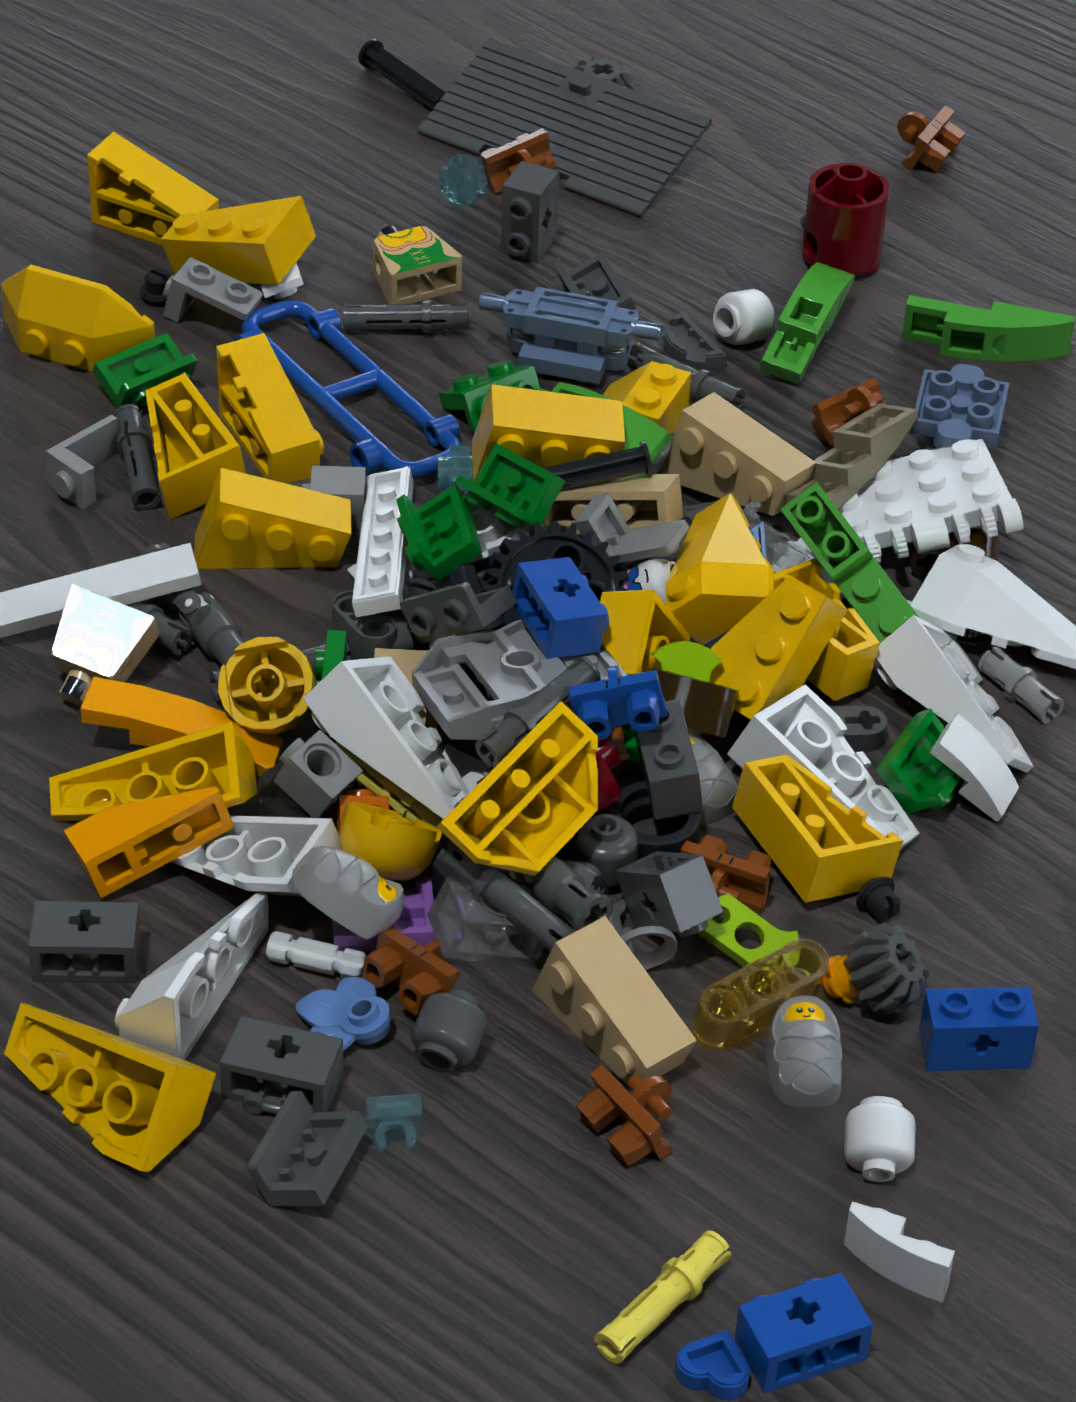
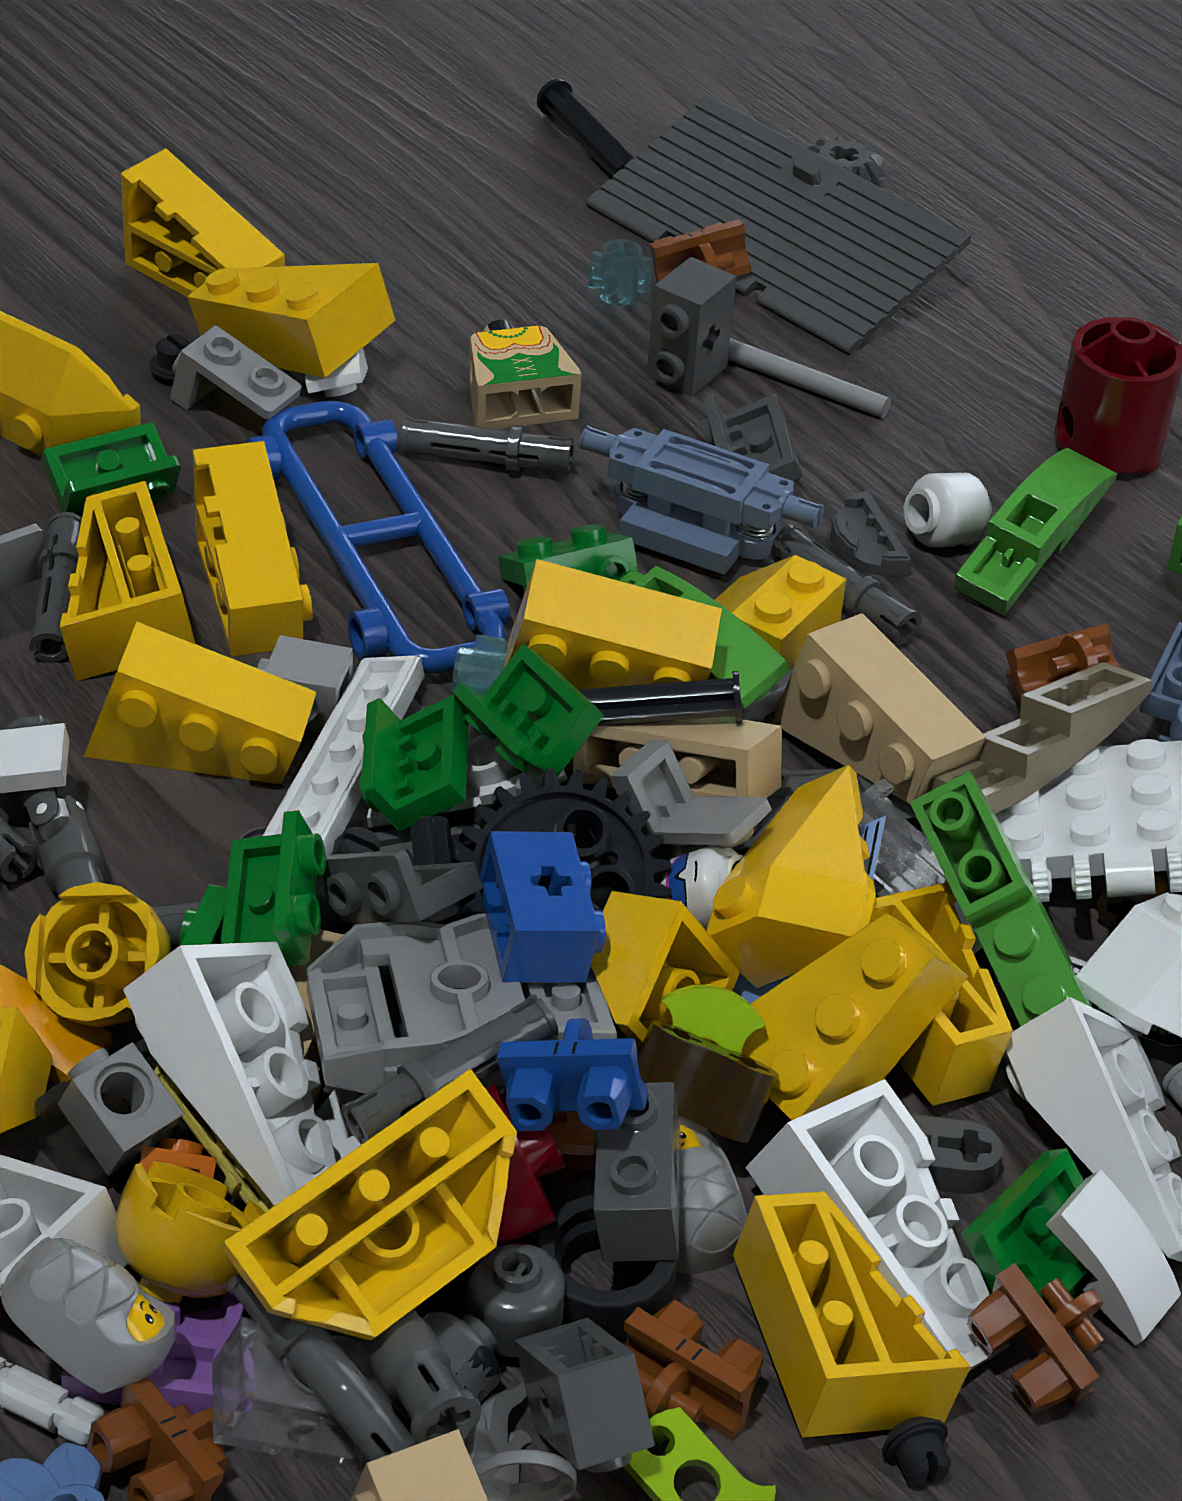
camera: 10 degrees right, 0 degrees up
(375, 623) = (275, 889): none -> green bracket
(618, 238) = (808, 378): none -> light grey bar
(945, 815) = (1060, 1366): none -> dark orange hips

